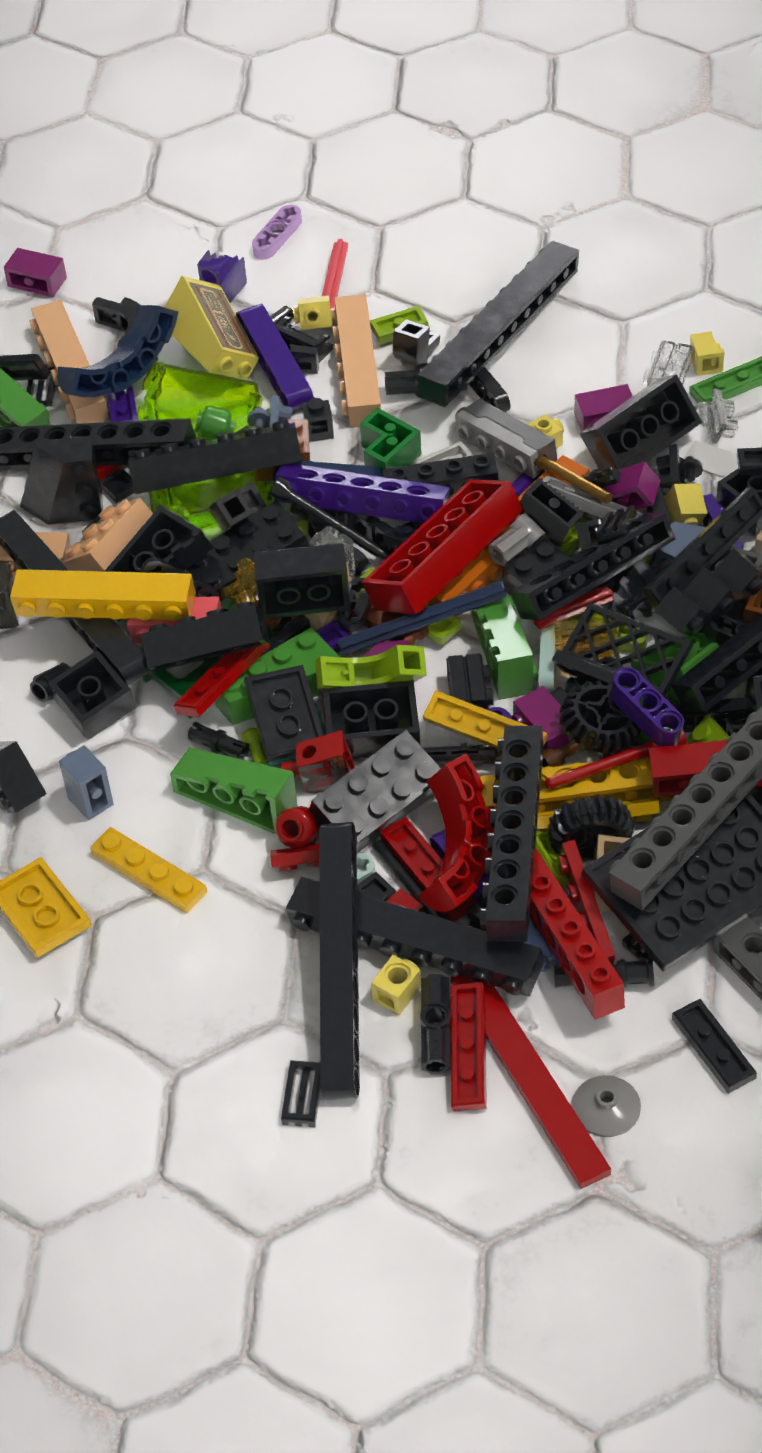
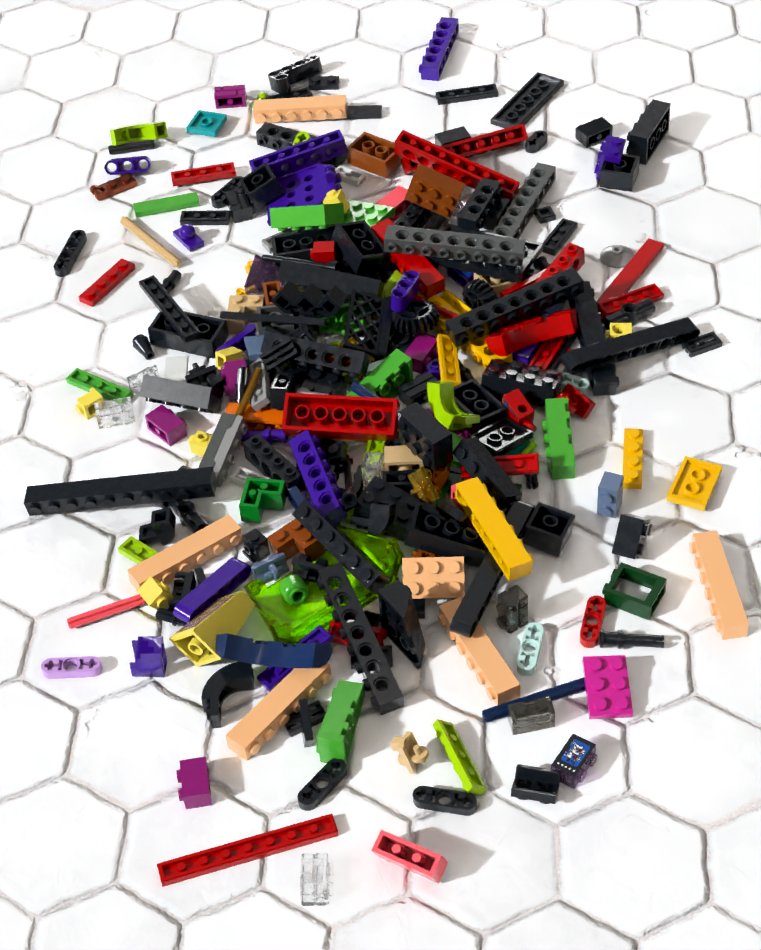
camera: 120 degrees left, 5 degrees down
(39, 685) = (550, 561): black cone -> none

